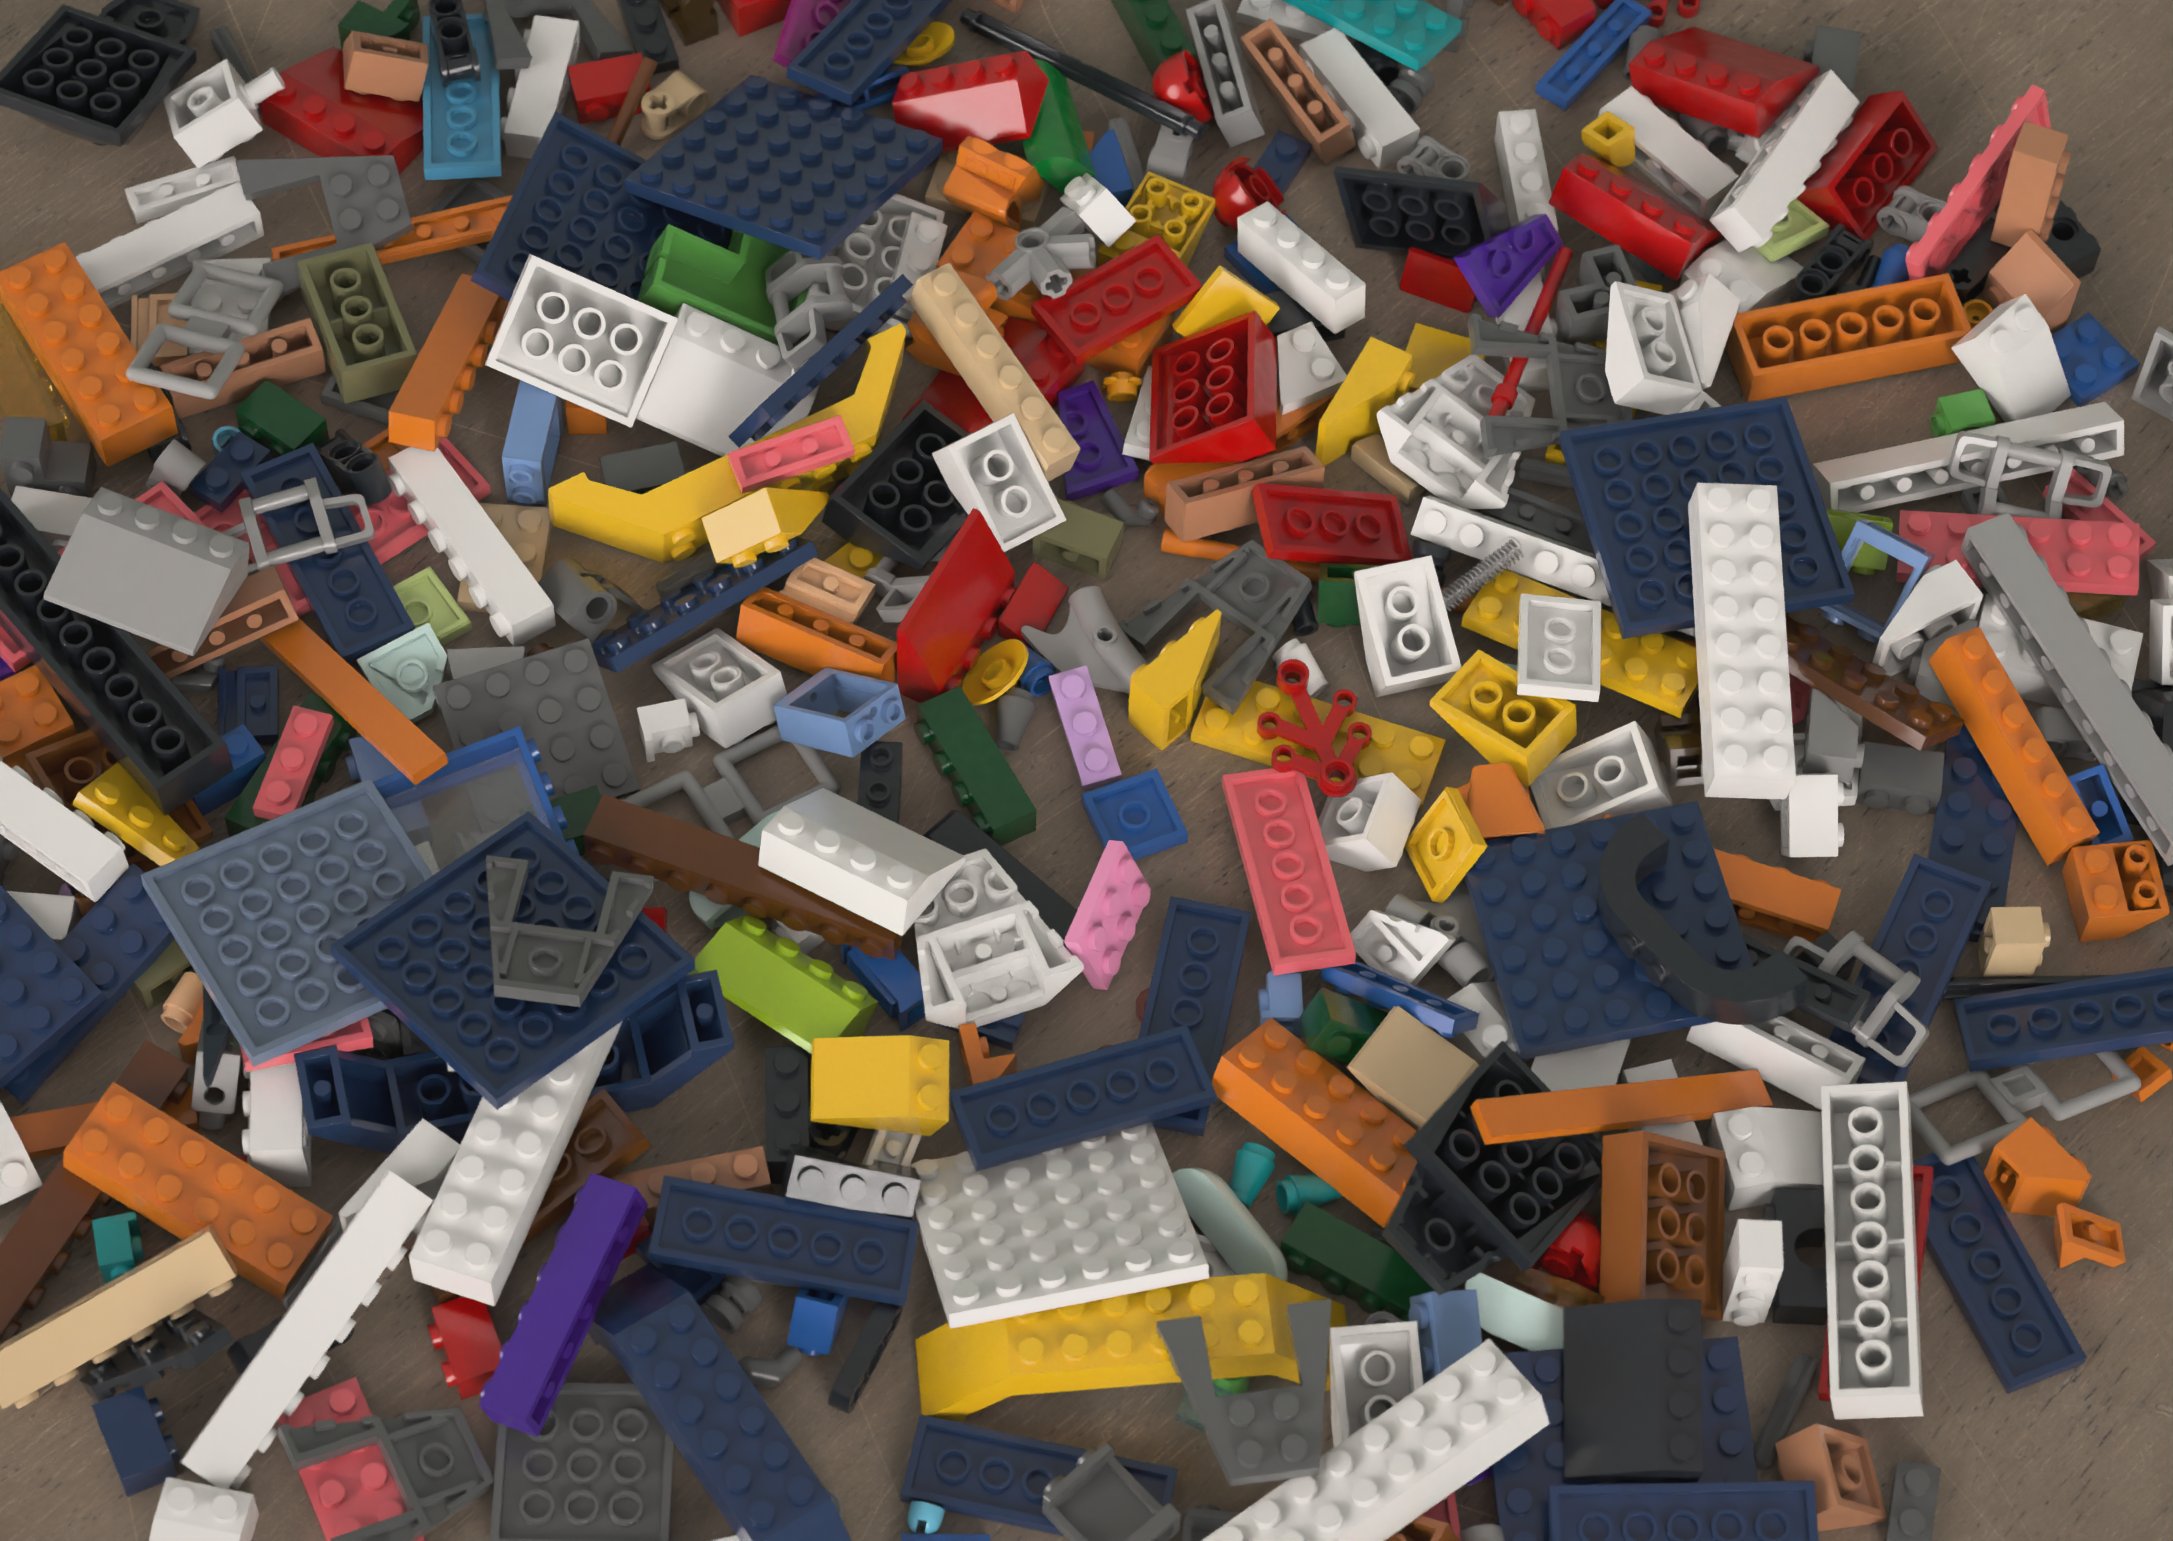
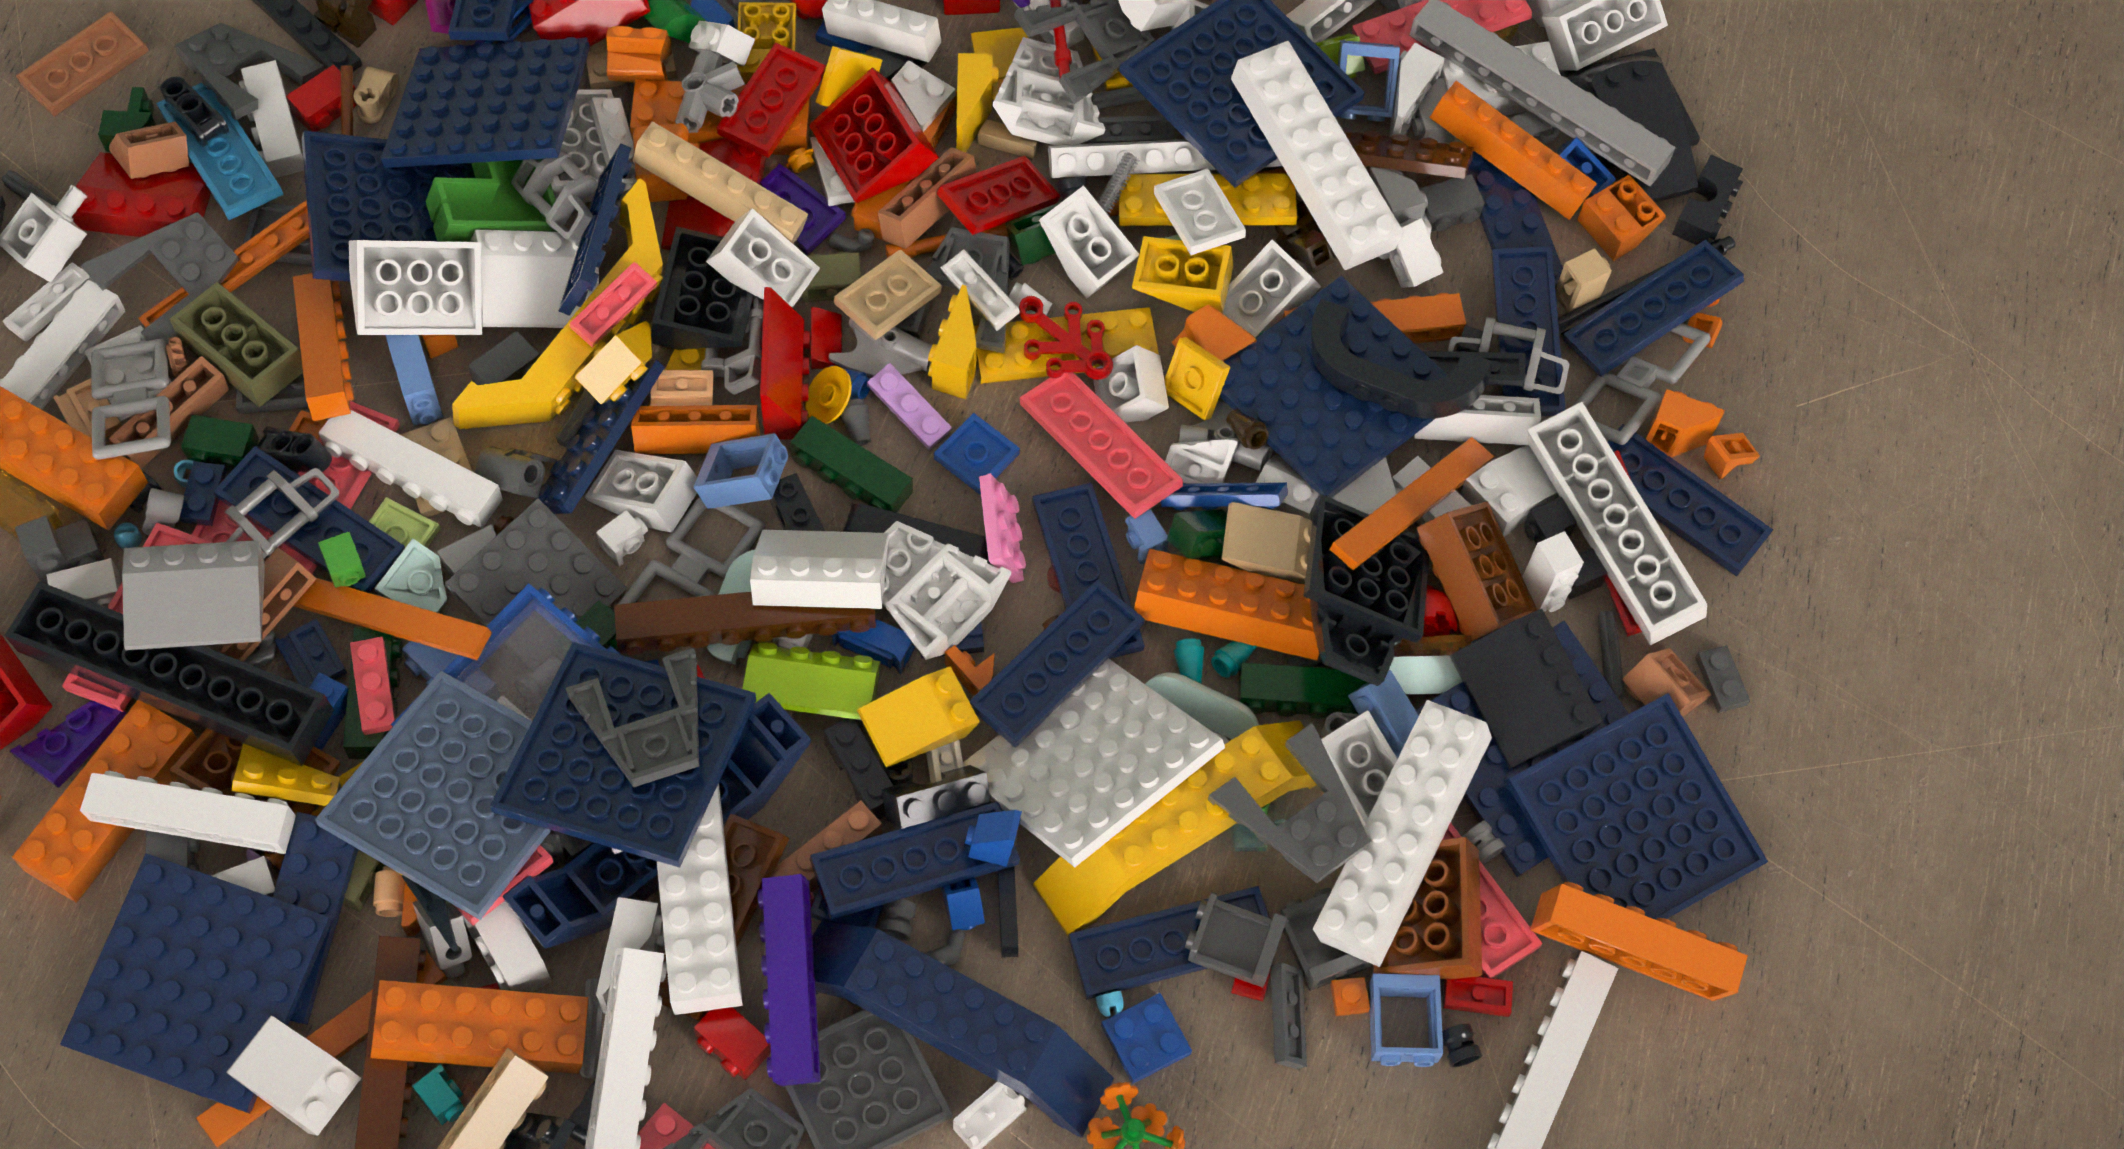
camera: 30 degrees left, 5 degrees up
(123, 483) = (125, 538): none -> medium azure hinge
(287, 306) = (177, 356): none -> nougat gear
(334, 610) = (342, 560): none -> bright green brick
(884, 1255) = (993, 836): none -> blue slope
(1128, 584) = (887, 294): none -> tan plate
(1242, 627) = (981, 289): none -> white tile
(1471, 933) = (1249, 430): none -> dark brown cone

